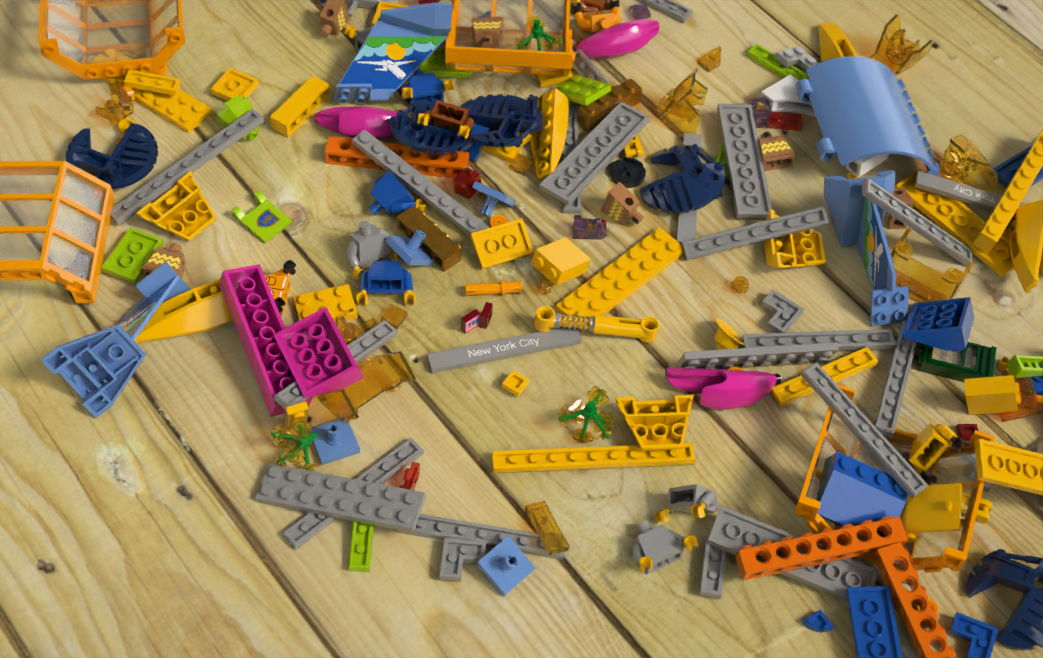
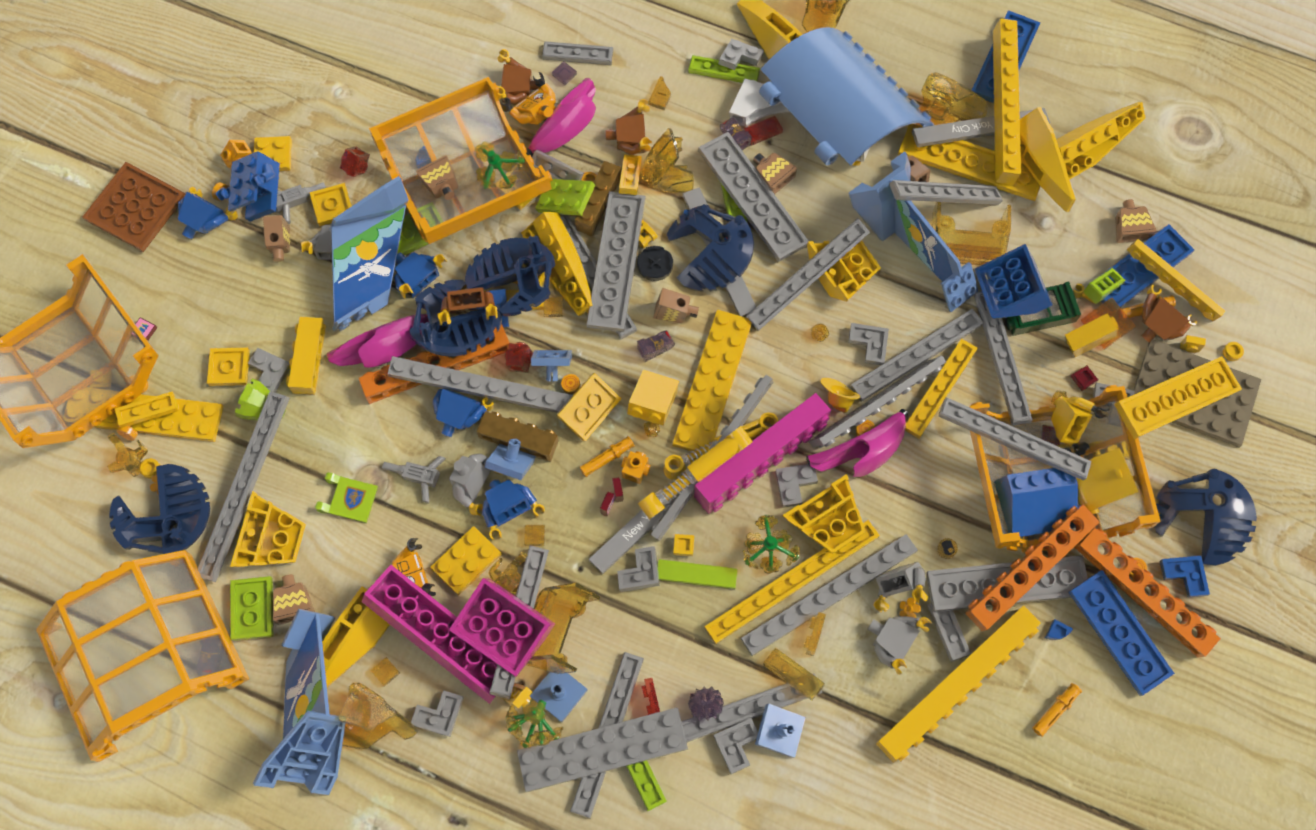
camera: 25 degrees left, 15 degrees up
(169, 376) = (370, 719): none -> clear yellow piece
(191, 35) = (146, 327): none -> tile
(204, 353) = (385, 671): none -> clear yellow tile
(222, 408) = (440, 720): none -> light grey plate
(266, 101) = (273, 368): none -> light grey plate
(330, 227) = (419, 474): none -> light grey piece
(453, 509) = (706, 703): none -> gear
(464, 388) = (644, 575): none -> light grey plate
(511, 305) = (635, 466): none -> light orange brick
(512, 412) = (697, 574): none -> lime tile
(581, 323) = (739, 418): none -> light grey plate
(587, 507) = (812, 641): none -> clear yellow plate
(604, 313) = (697, 471): none -> yellow piece
(614, 485) = (829, 595): none -> light grey plate
(626, 344) = (762, 453): none -> dark pink brick
(646, 381) = (789, 481): none -> light grey plate
(647, 98) = (630, 174): none -> yellow plate
(669, 71) = (631, 131): none -> dark orange torso
(687, 530) = (909, 608): none -> light orange plant
(694, 614) = (958, 684): none -> yellow brick
(752, 503) = (947, 548): none -> clear yellow tile

